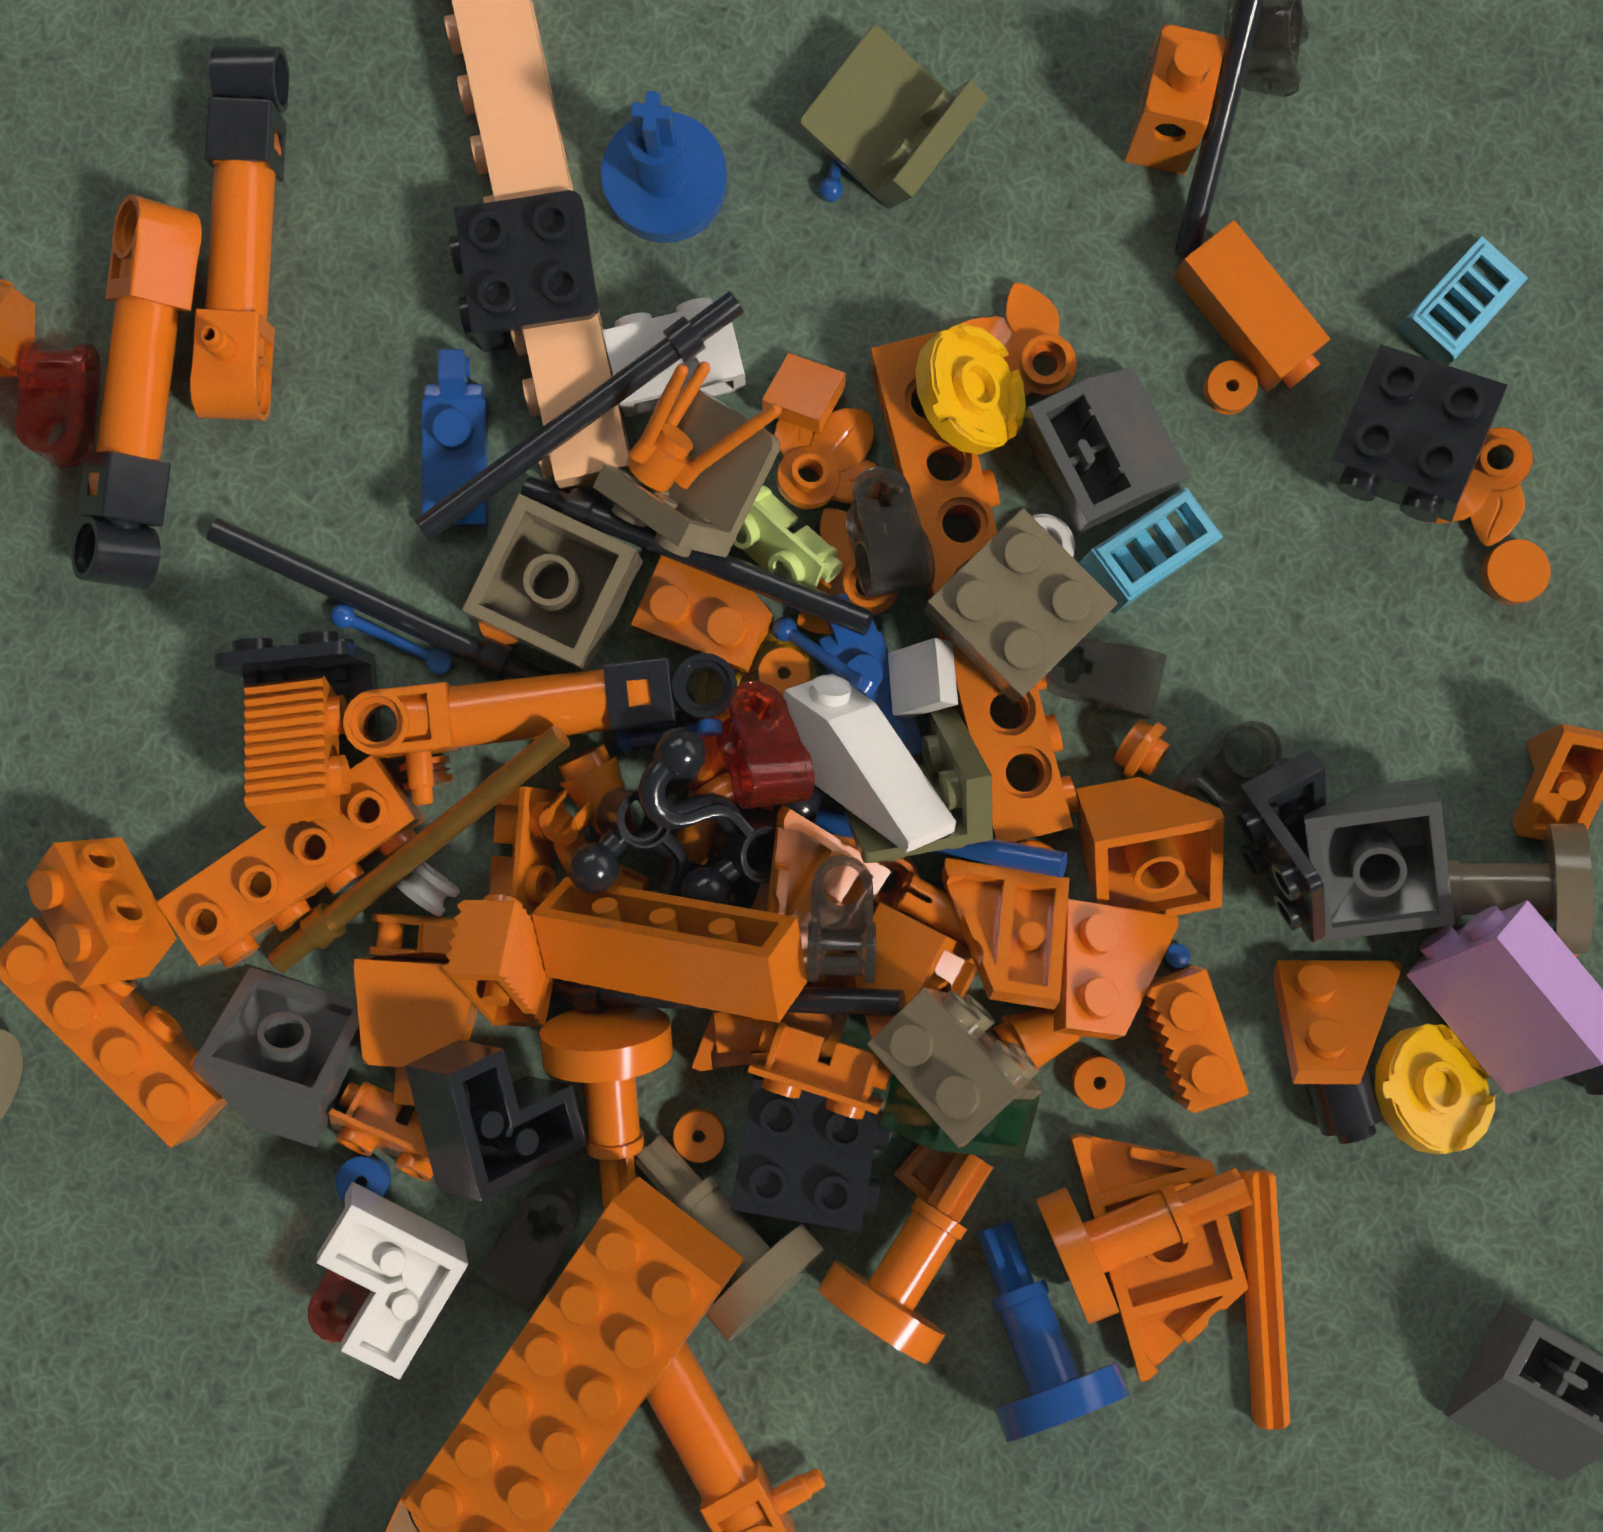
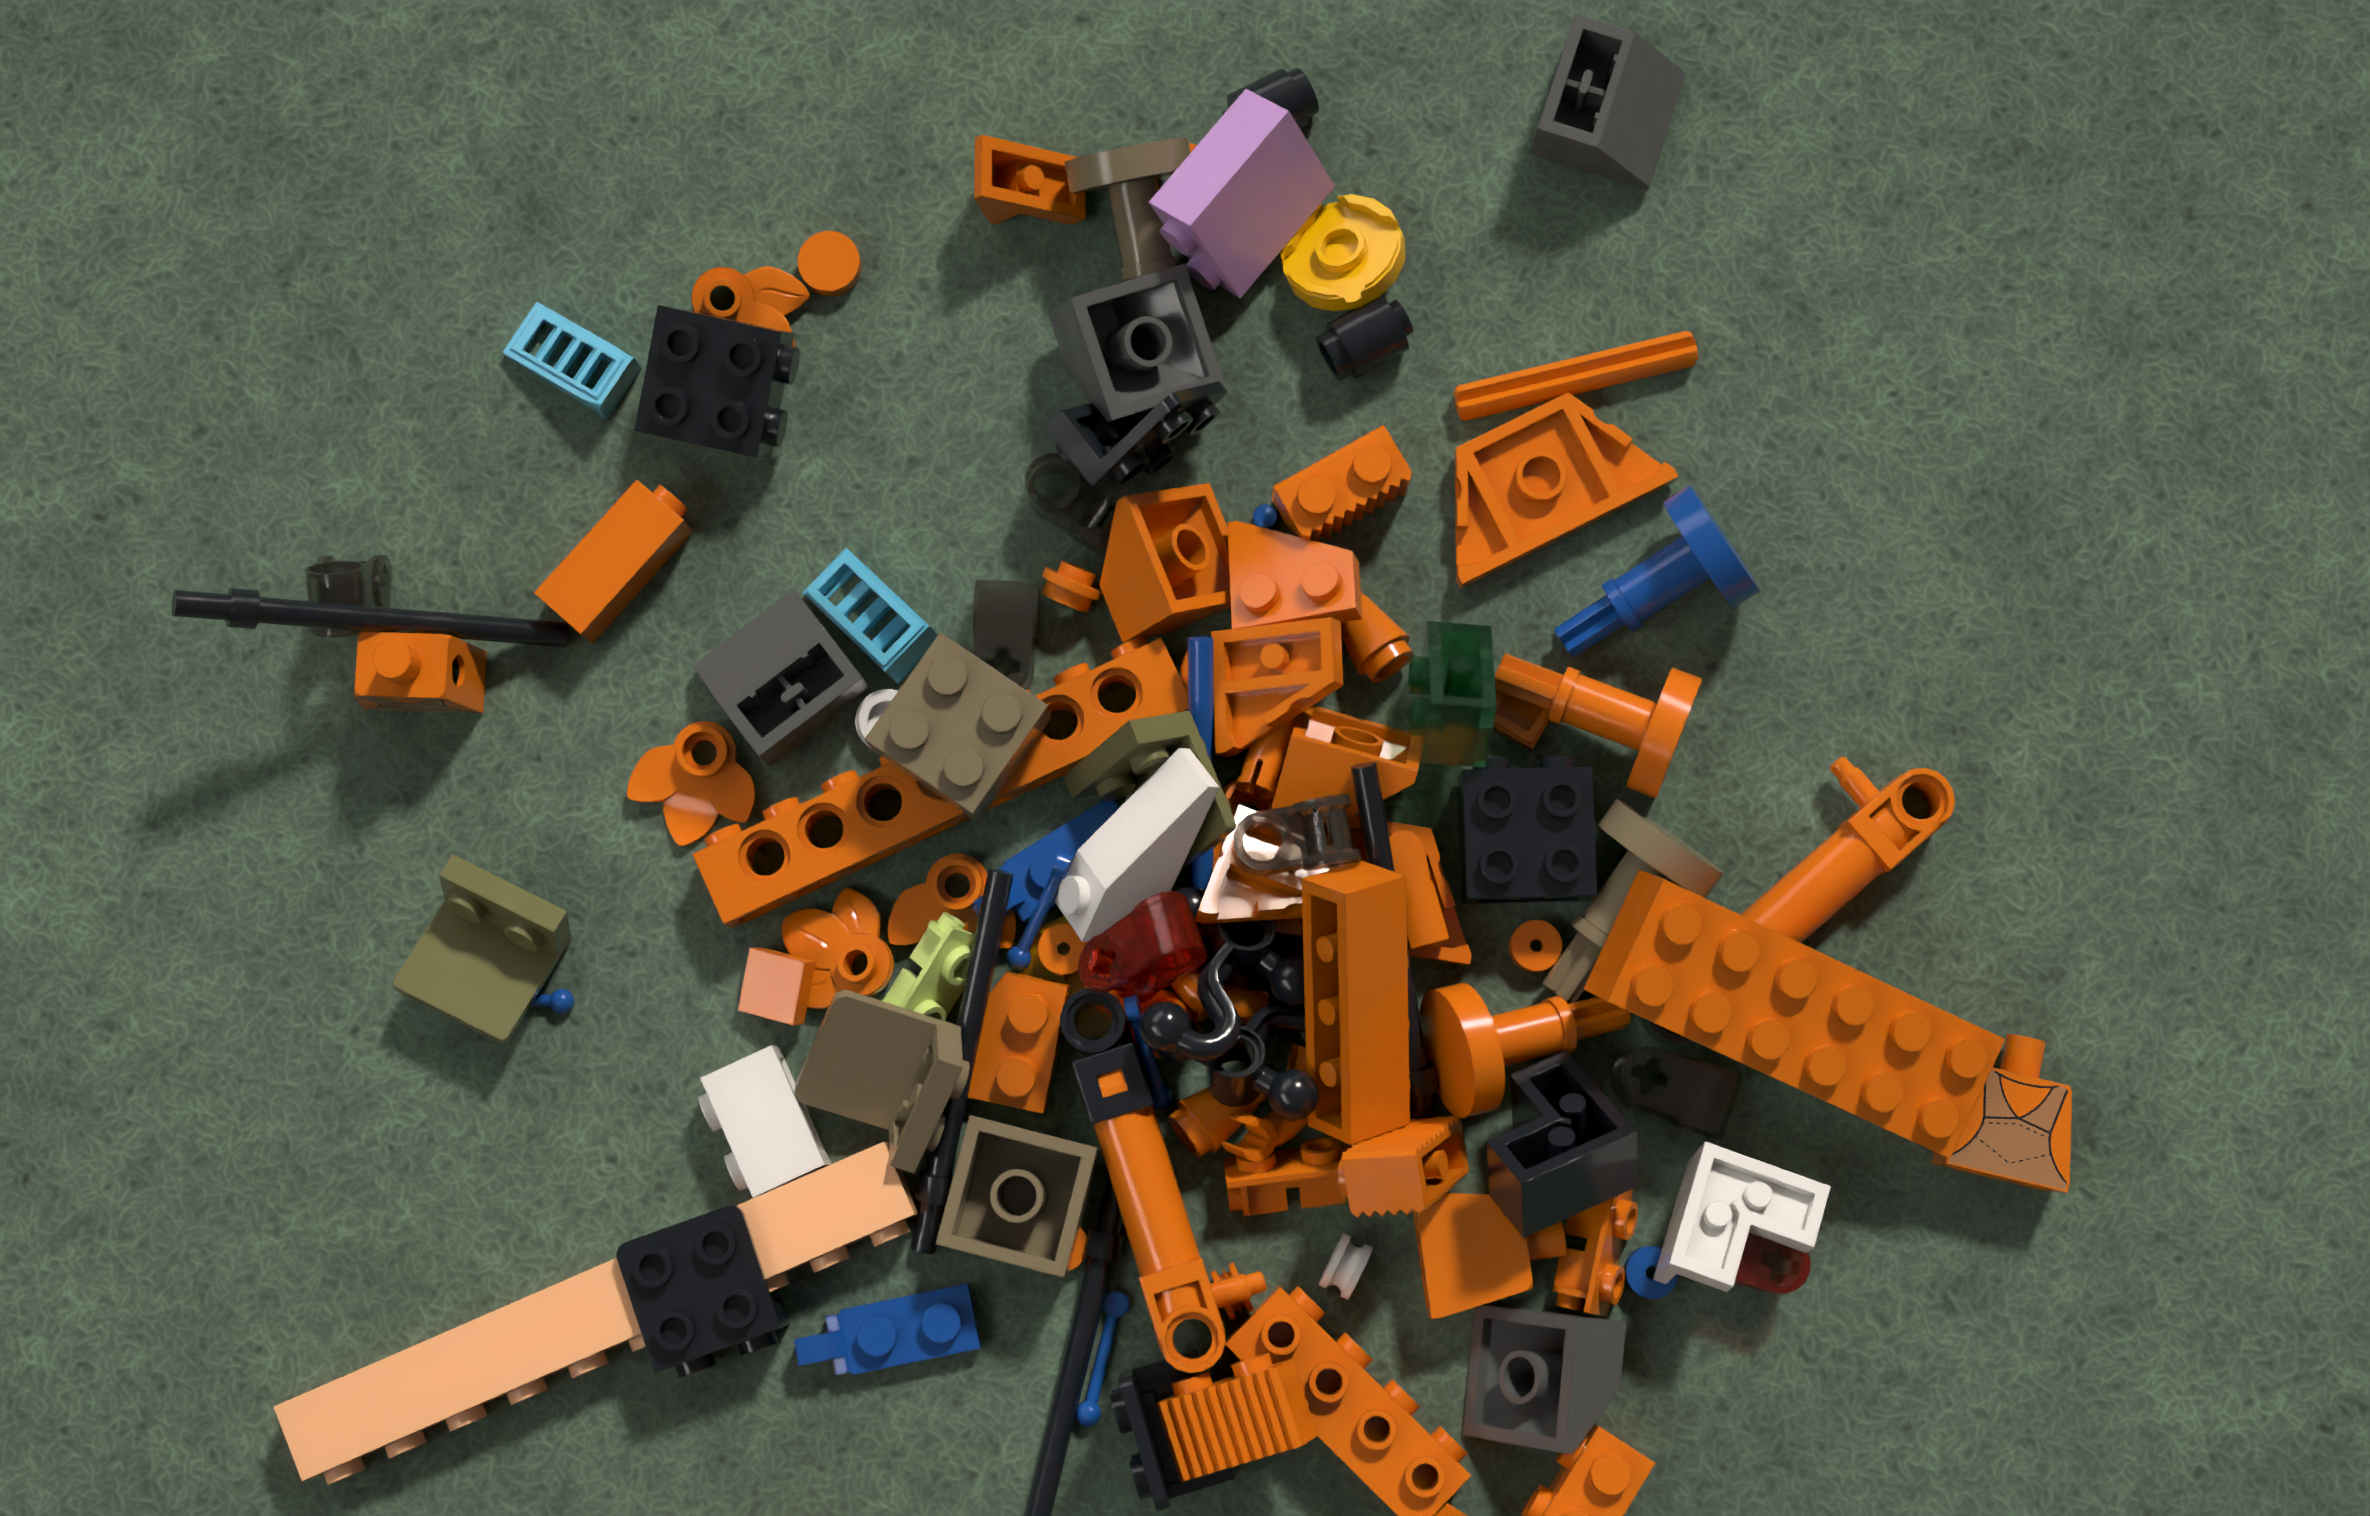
camera: 100 degrees left, 5 degrees down
(329, 921) = (1401, 1360): pearl gold bar -> none
(432, 936) = (1396, 1243): orange bar -> none
(663, 174) = (578, 1172): blue piece -> none
(664, 449) = (864, 1107): orange plant -> none
(681, 341) = (752, 1112): black bar -> none
(795, 1067) = (1450, 806): orange hinge -> none
(888, 535) = (908, 871): clear smoke piece -> none
(922, 678) = (1043, 810): white tile -> none
(954, 1062) = (1409, 705): dark tan bracket -> none
(970, 389) = (749, 817): yellow tile -> none
(1111, 1088) = (1408, 556): orange piece -> none
(1132, 1232) = (1539, 512): orange piece -> none
(1240, 377) = (685, 557): orange piece -> none
(1332, 1015) = (1292, 360): orange wing -> none

